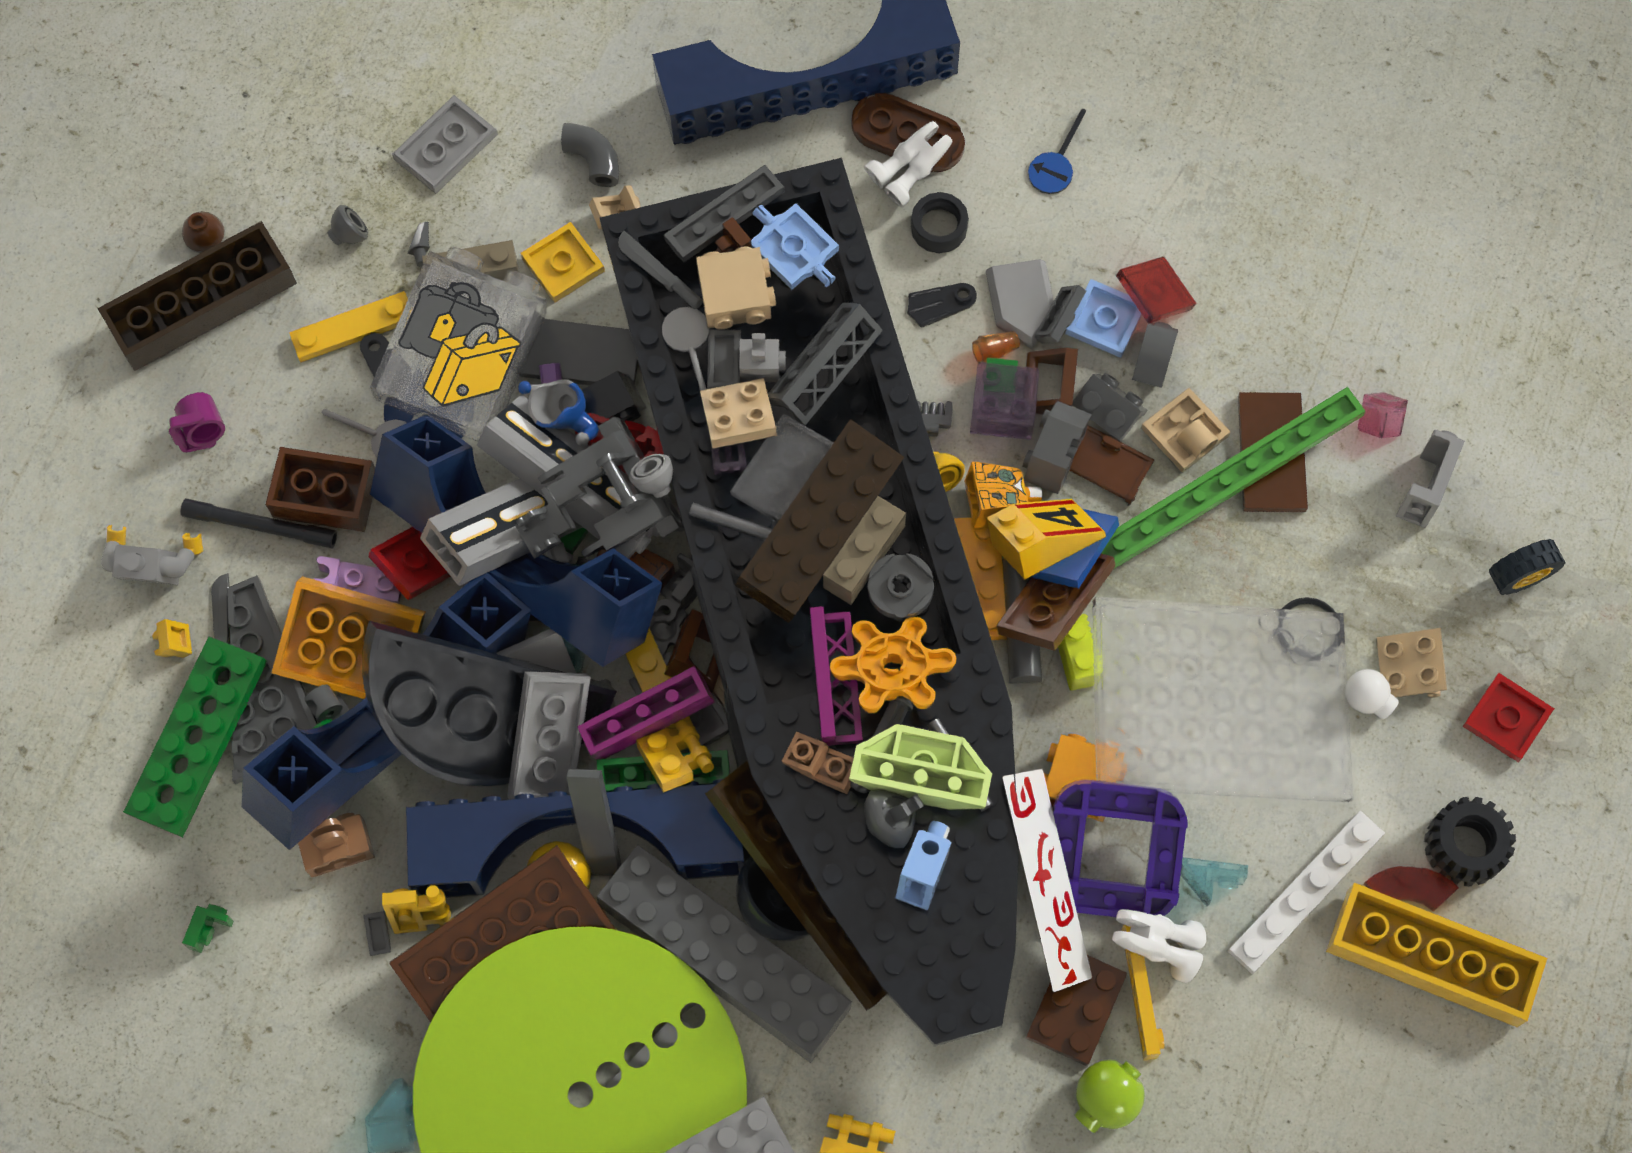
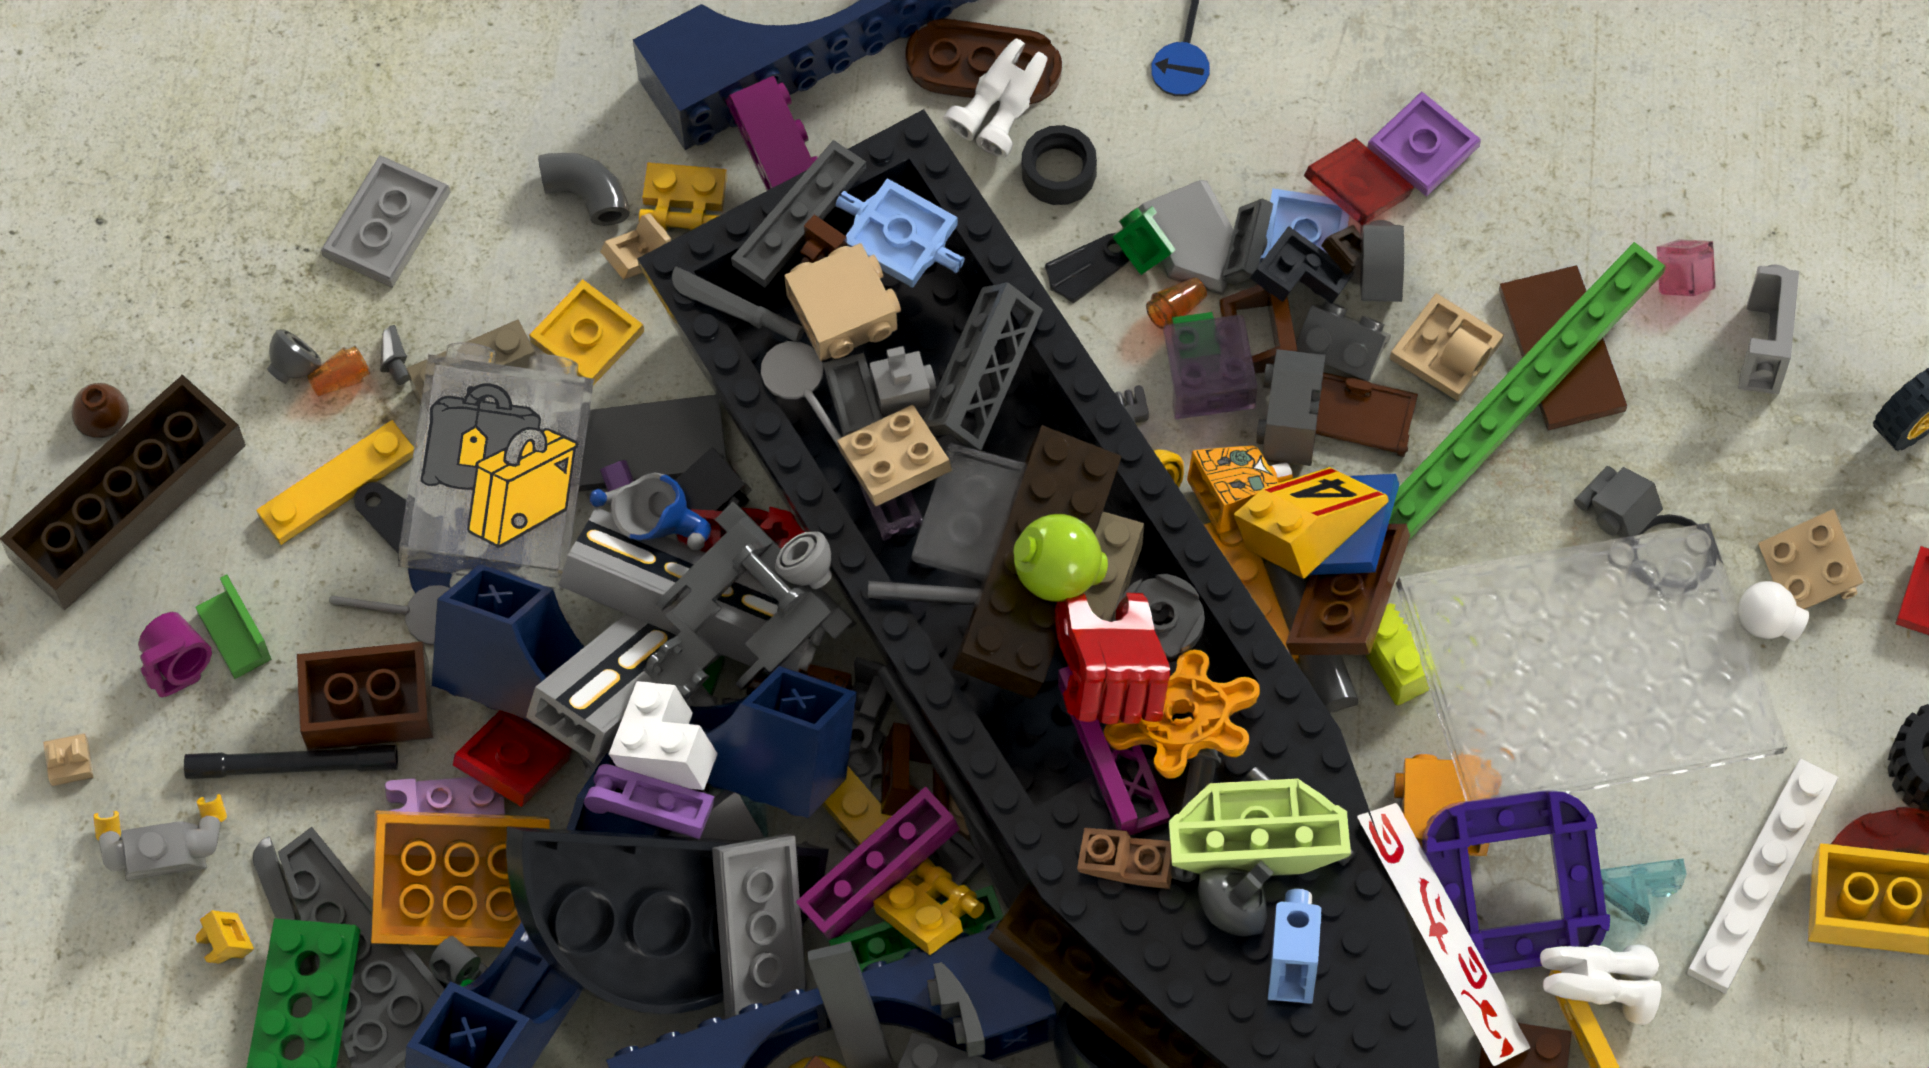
camera: 15 degrees left, 5 degrees down
(104, 480) = (68, 759): none -> tan tile
(247, 417) = (233, 631): none -> bright green panel
(378, 246) = (339, 372): none -> clear orange cone
(488, 625) = (649, 800): none -> medium lavender plate
(507, 583) = (659, 739): none -> white brick
(664, 172) = (683, 188): none -> yellow plate
(666, 832) = (953, 1002): none -> dark grey slope
(732, 144) = (770, 131): none -> magenta brick
(830, 525) = (1059, 557): none -> lime brick
(850, 615) = (1114, 664): none -> red piece
(983, 293) = (1143, 239): none -> green bracket
(1091, 337) = (1296, 260): none -> black plate
(1129, 337) = (1344, 248): none -> dark brown tile
(1213, 273) = (1424, 143): none -> medium lavender plate
(1281, 580) = (1621, 501): none -> dark grey brick

